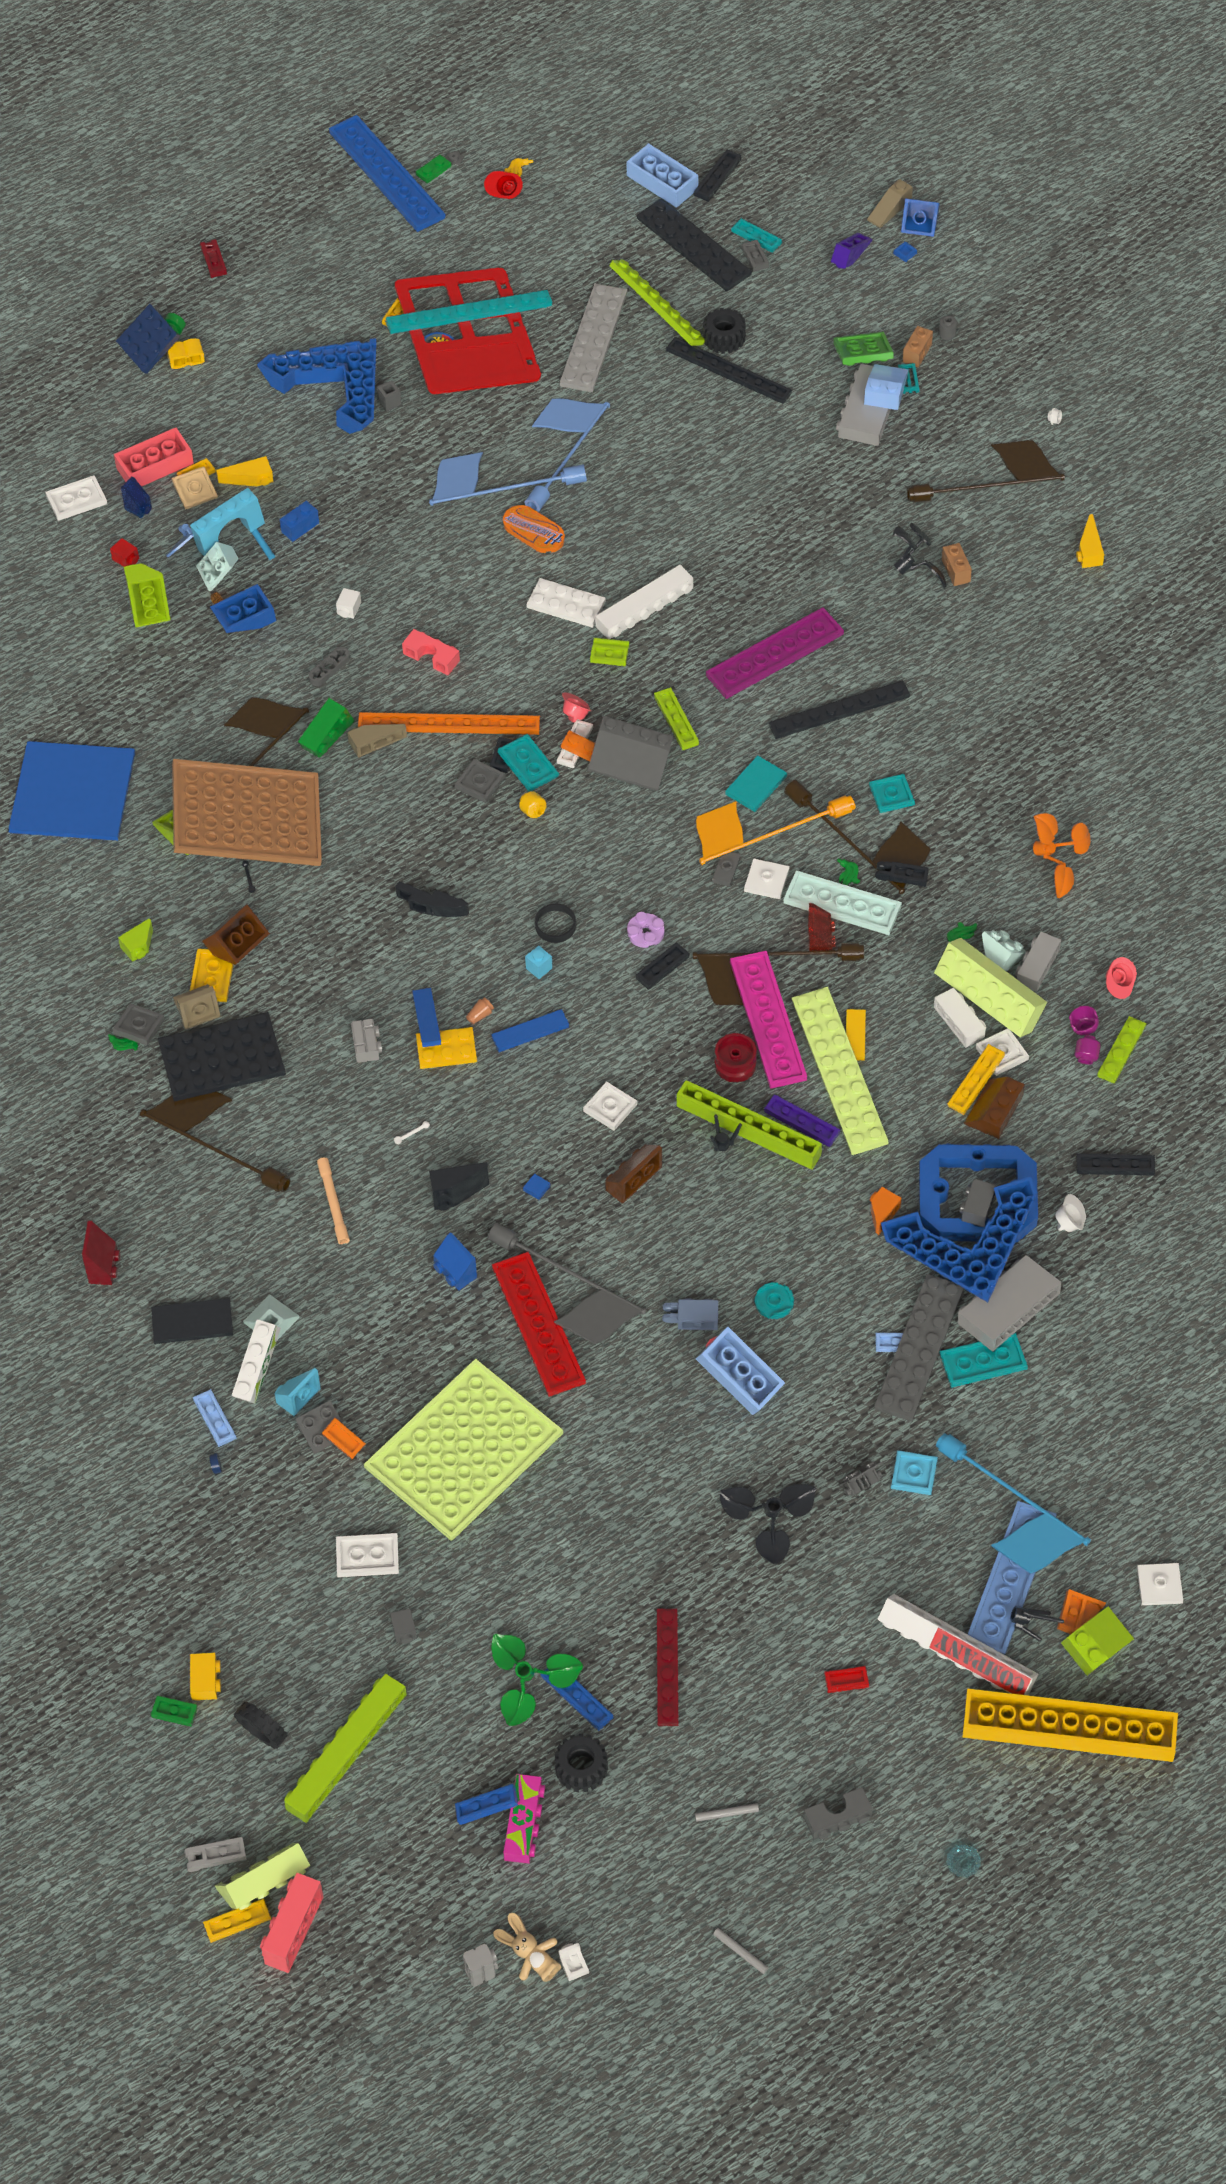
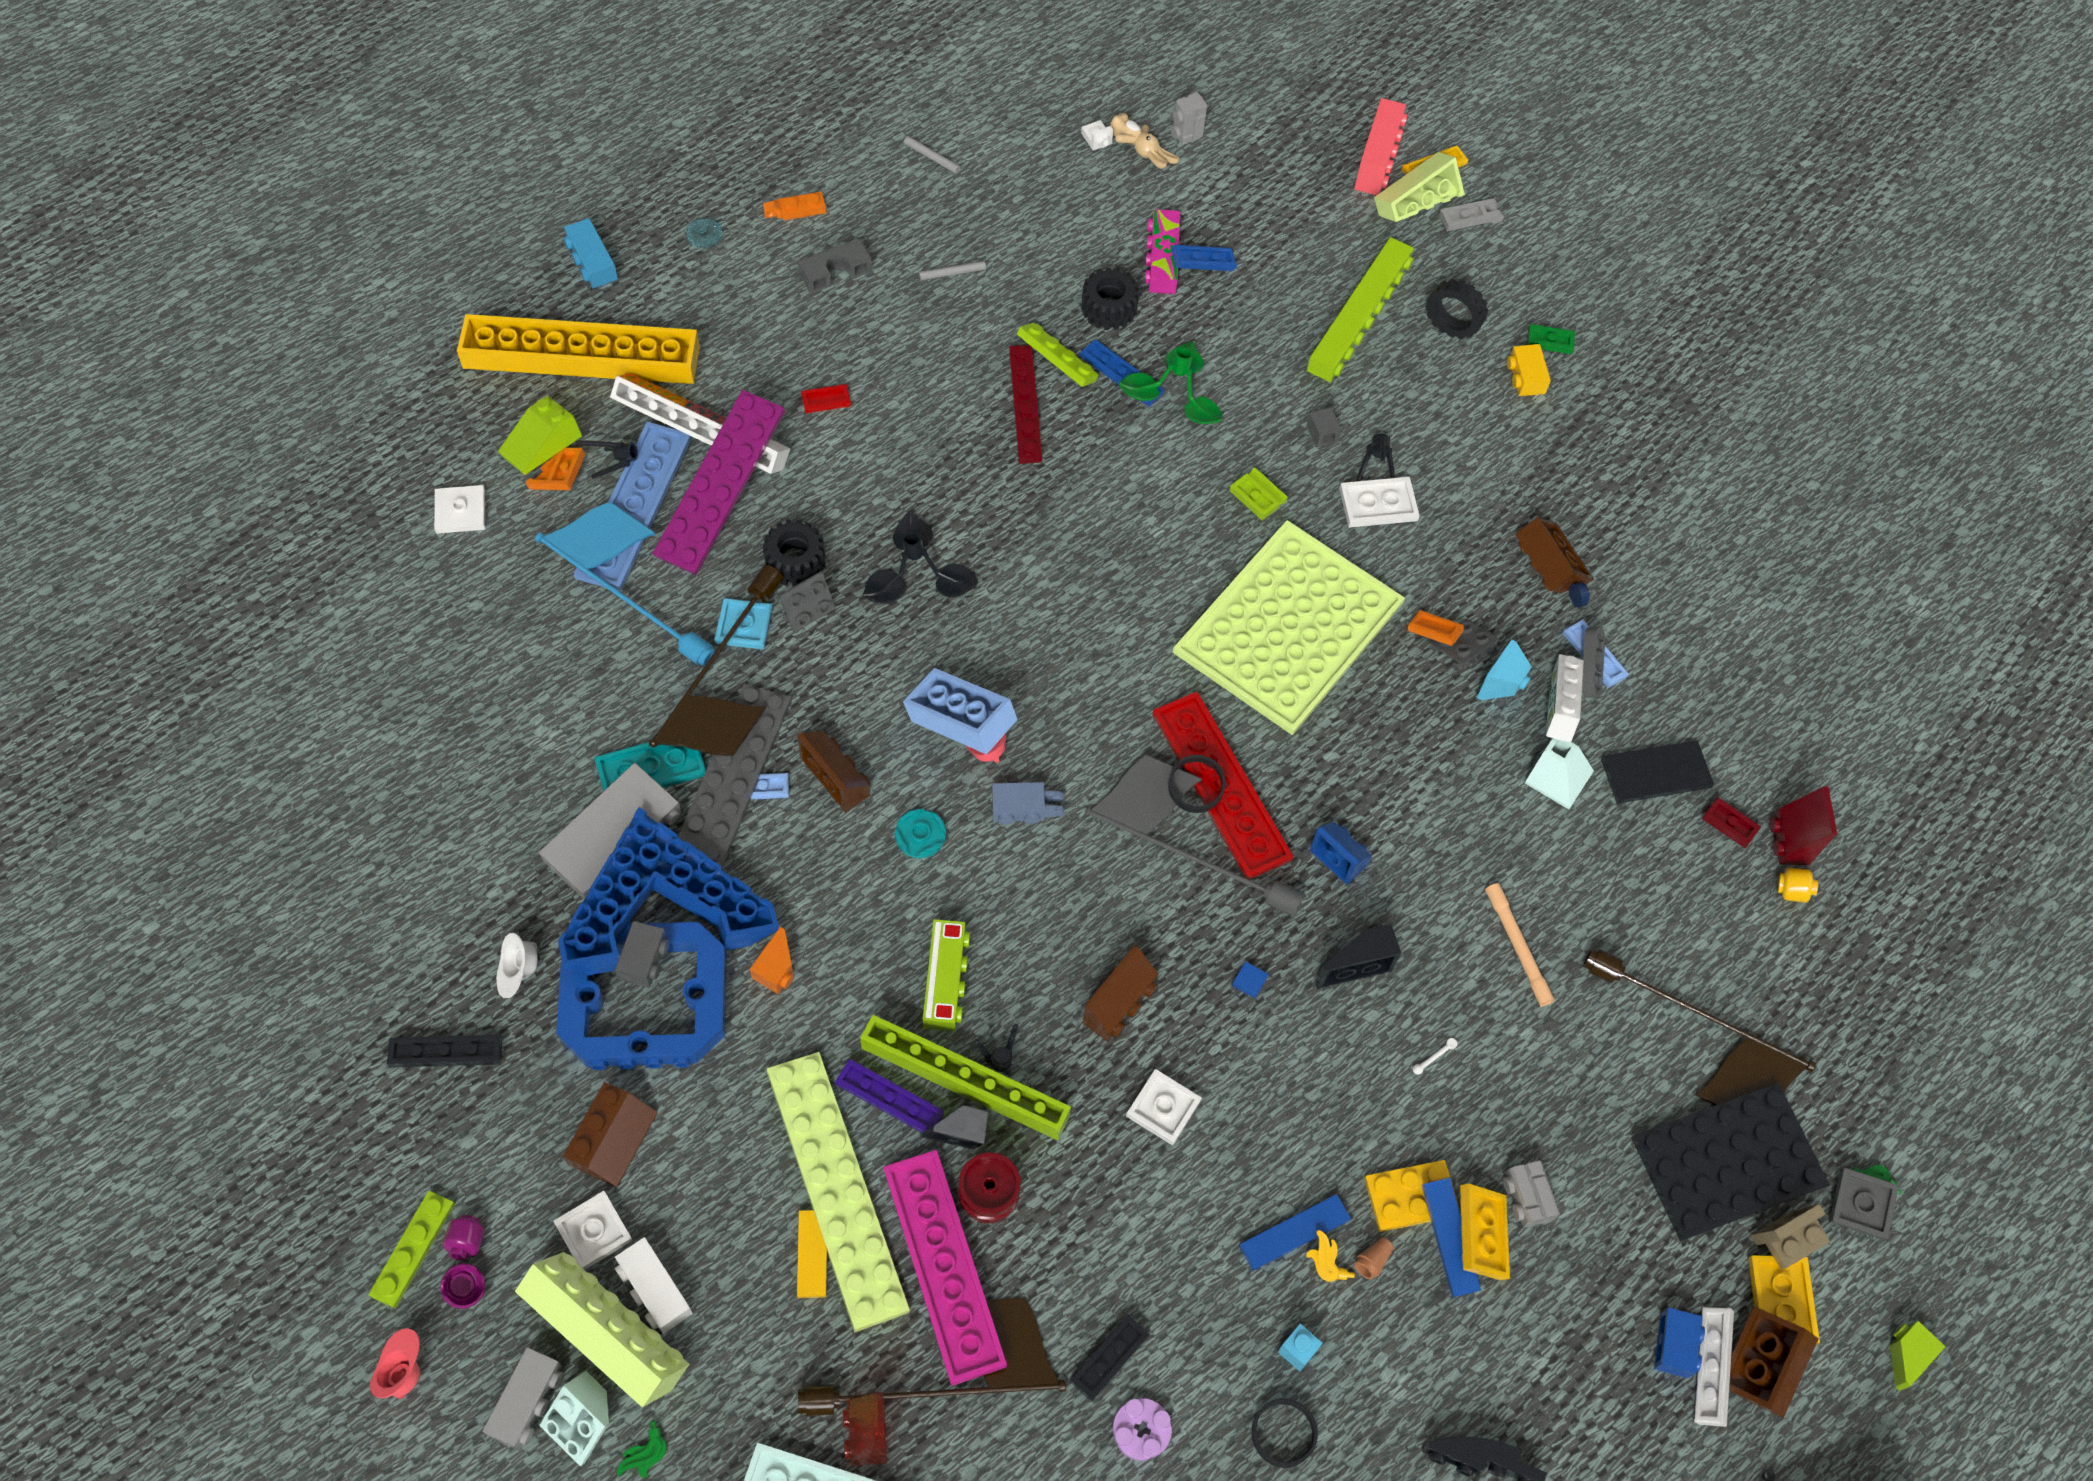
camera: 170 degrees right, 5 degrees up
(113, 1227) = (1797, 885): none -> yellow head
(147, 1277) = (1731, 822): none -> dark red plate
(222, 1398) = (1593, 662): none -> dark grey beam
(227, 1497) = (1552, 555): none -> reddish brown slope
(269, 942) = (1715, 1368): none -> white tile
(289, 954) = (1679, 1343): none -> blue brick
(355, 1606) = (1380, 449): none -> black plant
(403, 1016) = (1484, 1232): none -> yellow plate
(471, 1566) = (1258, 494): none -> lime plate
(512, 1013) = (1325, 1260): none -> yellow piece
(562, 1297) = (1202, 759): none -> black tyre
(634, 1712) = (1057, 354): none -> lime plate
(755, 1093) = (961, 1127): none -> slope
(760, 1195) = (944, 975): none -> lime brick
(840, 1340) = (833, 769): none -> reddish brown slope
(868, 1536) = (794, 536): none -> black tyre
(875, 1891) = (795, 206): none -> orange hinge
(936, 1580) = (719, 482): none -> magenta plate
(942, 1384) = (711, 722): none -> dark brown flag
(976, 1079) = (634, 1177): yellow tile -> none
(1070, 1836) = (589, 253): none -> dark azure brick

